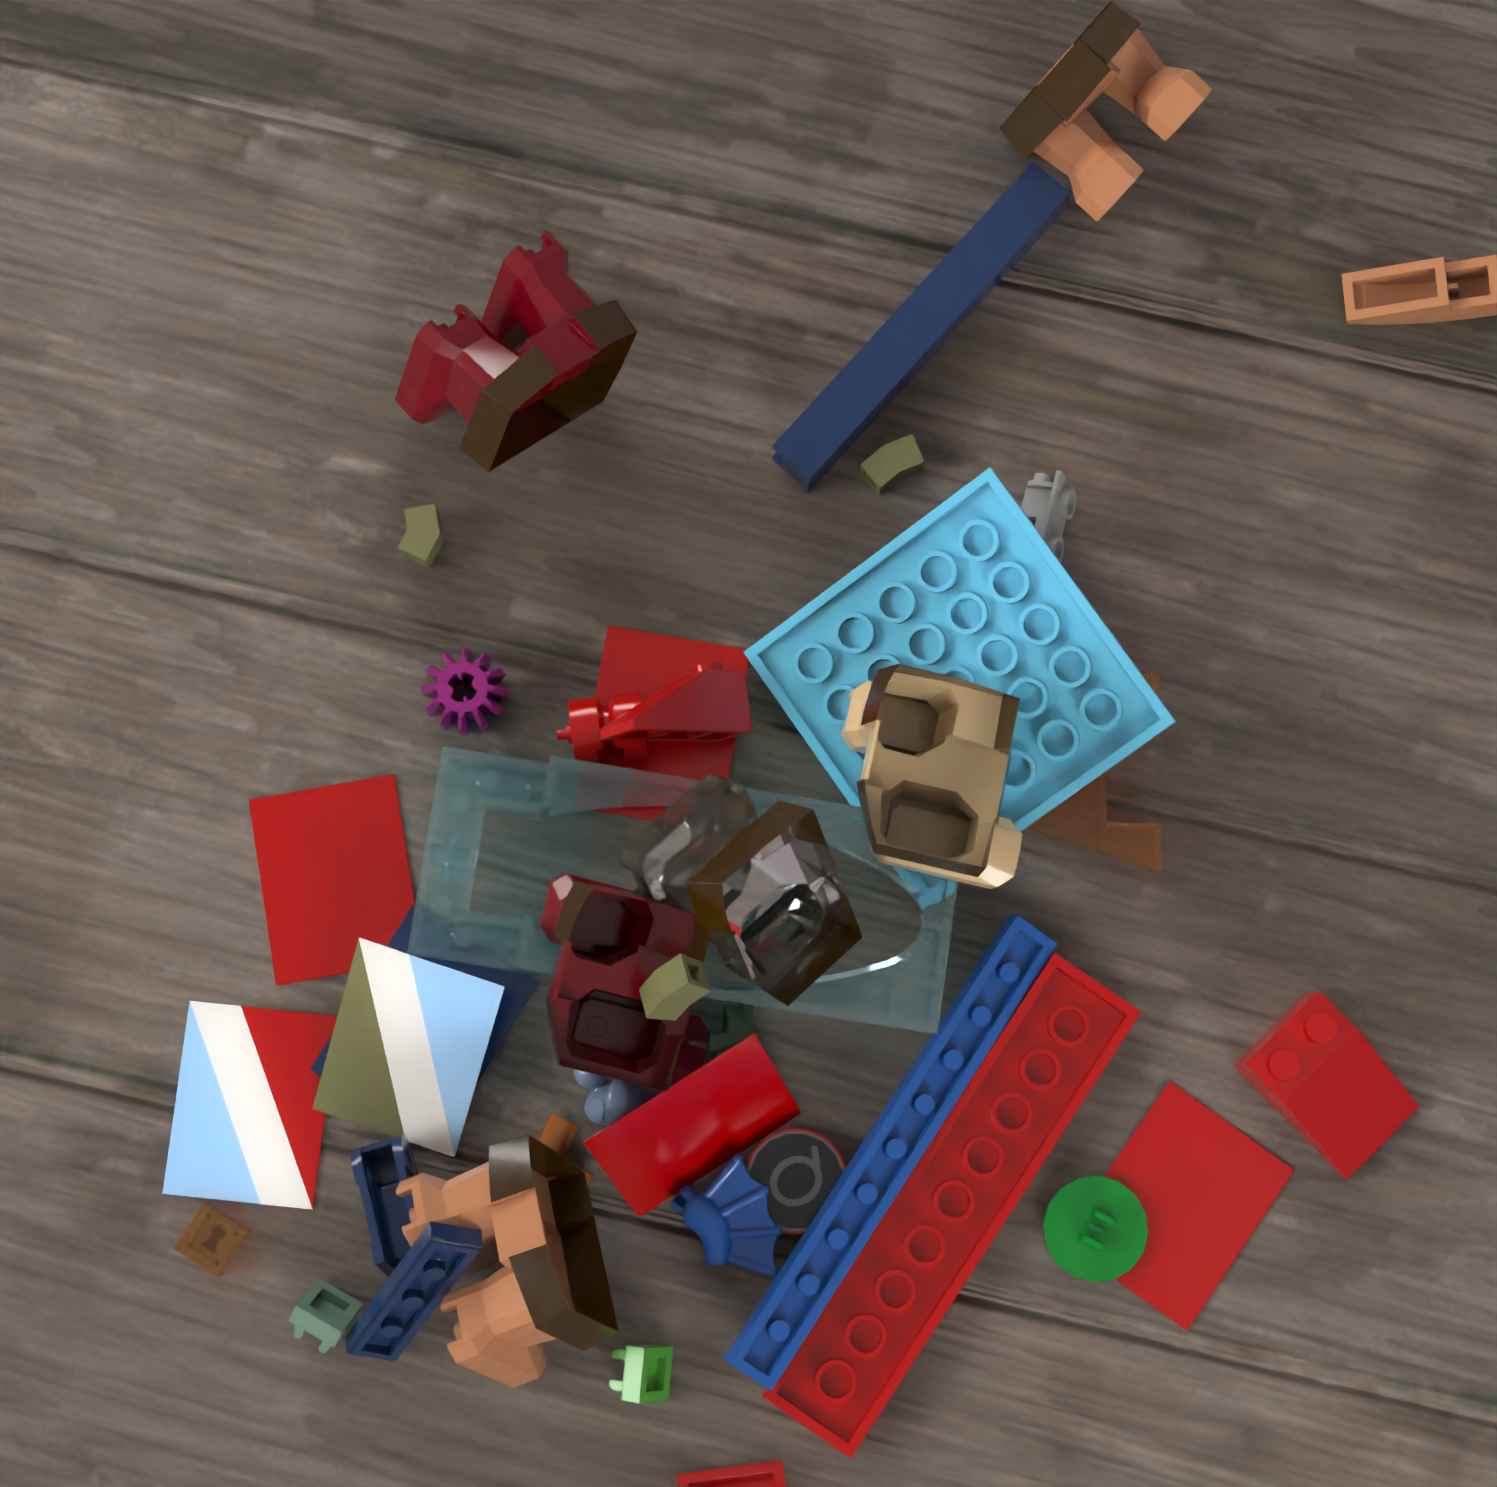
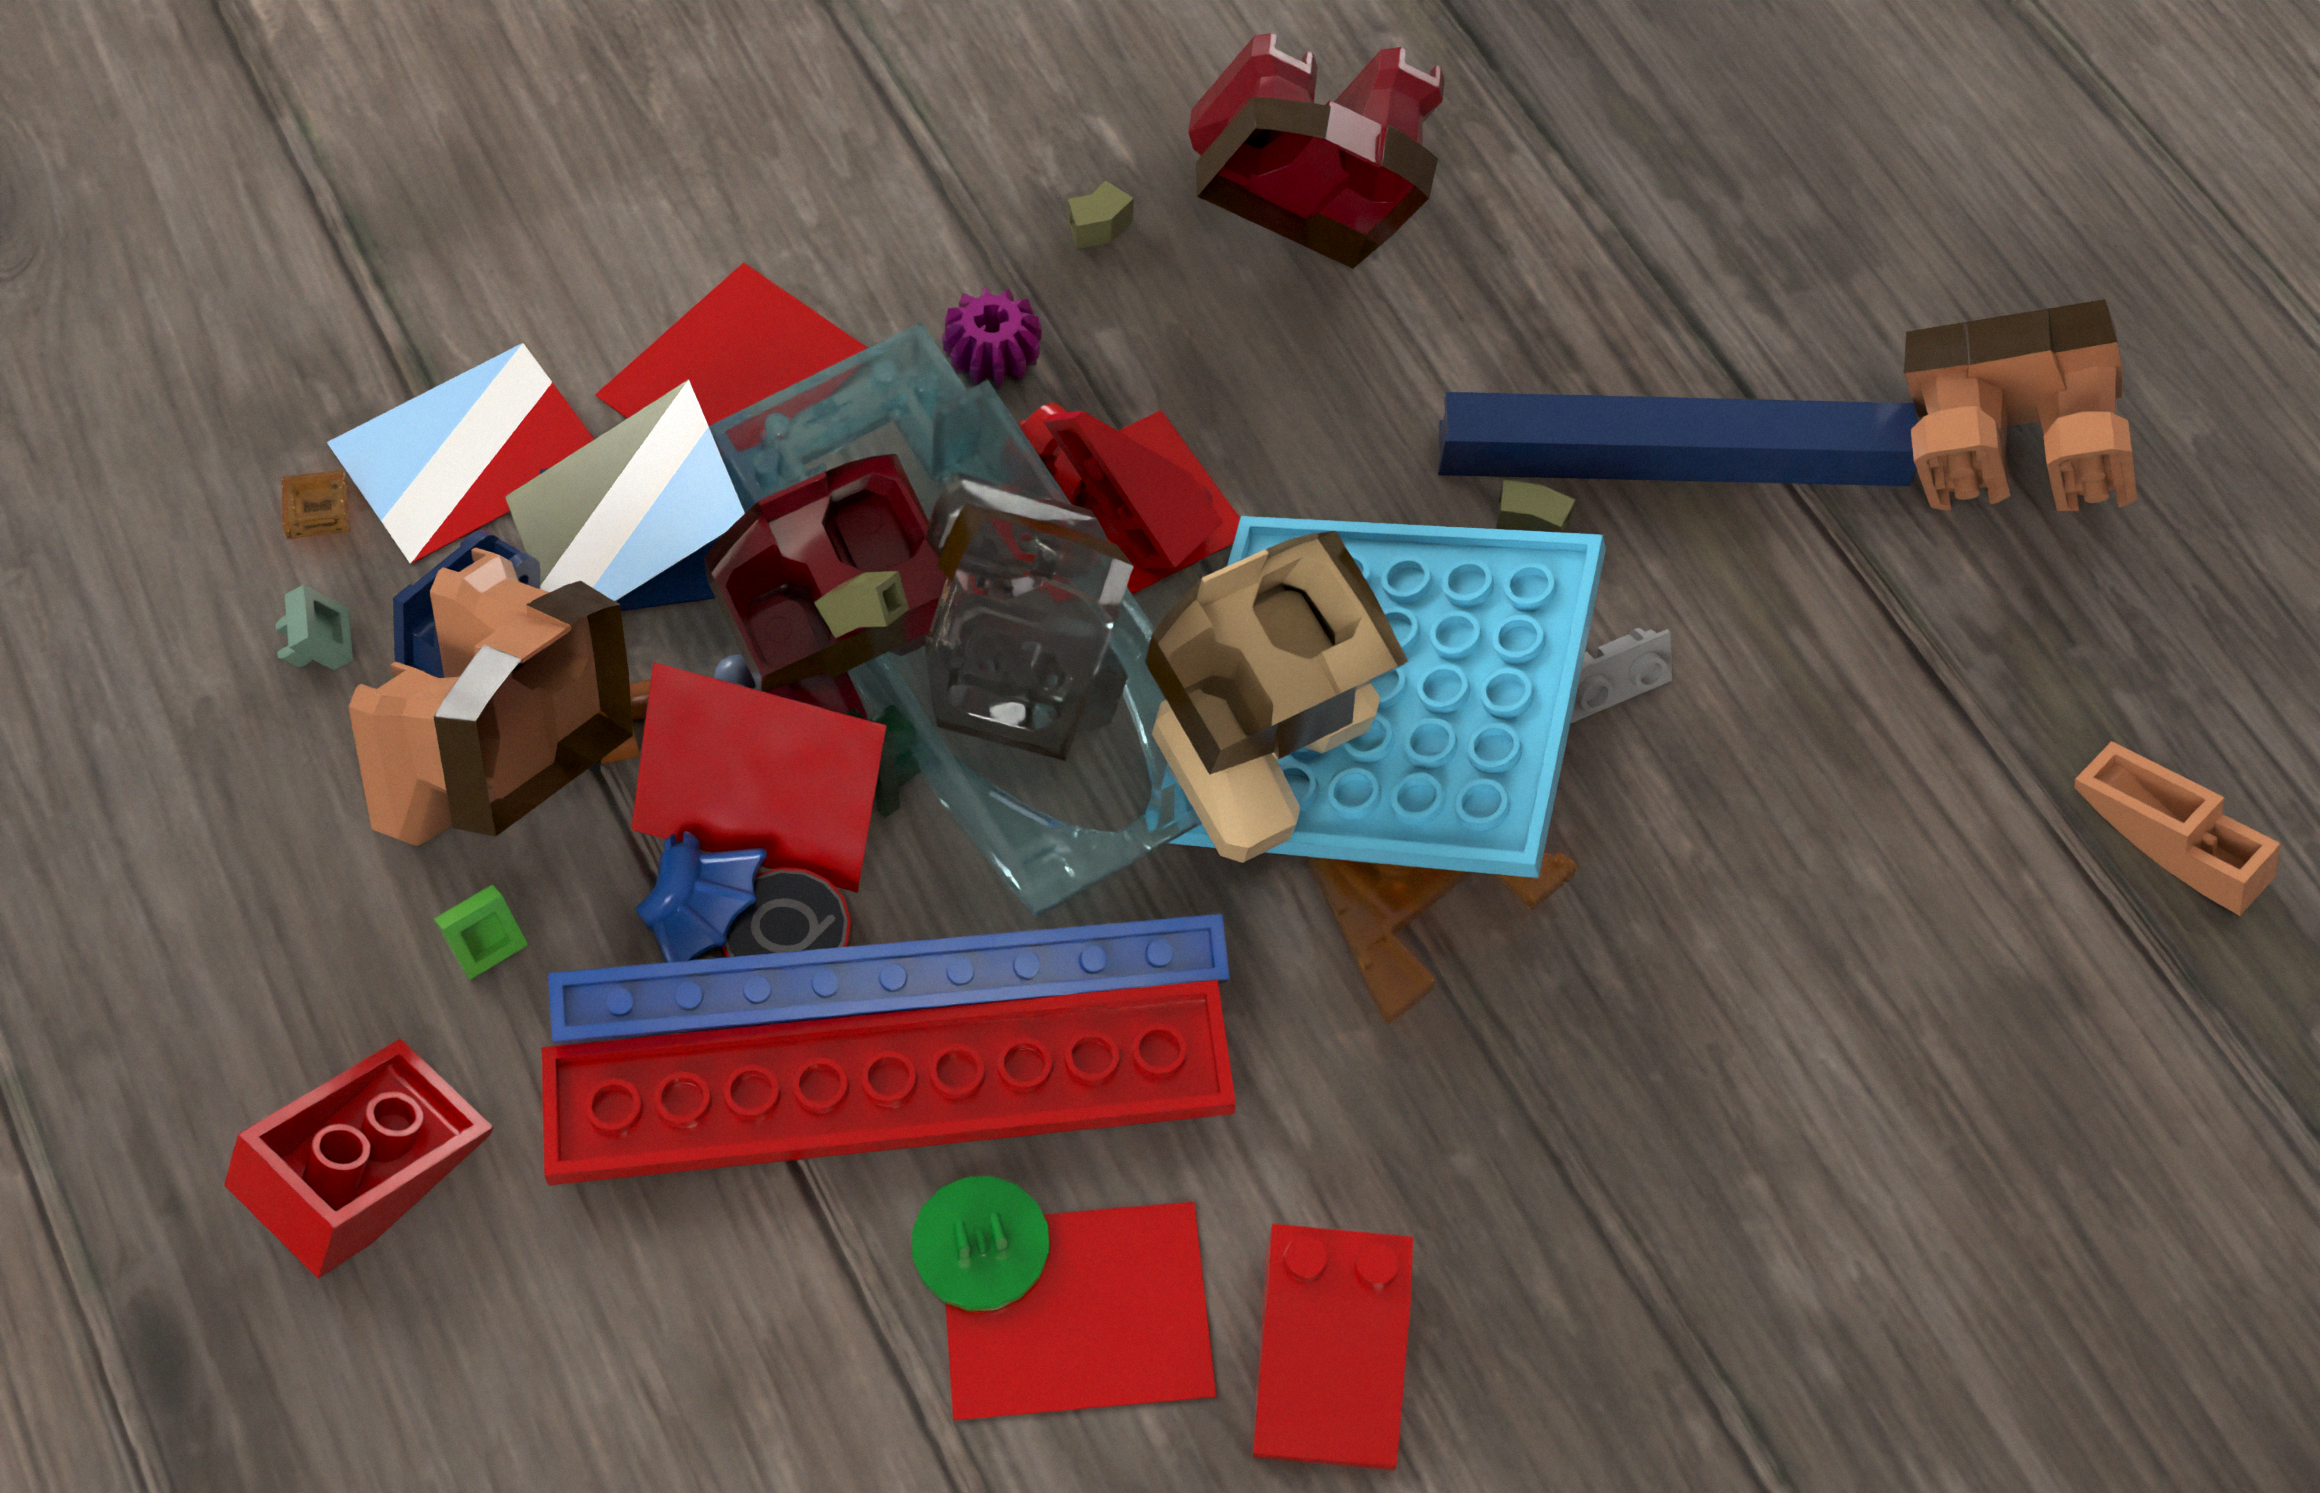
camera: 45 degrees right, 20 degrees down
(413, 1290) = (410, 633): dark blue tile -> none

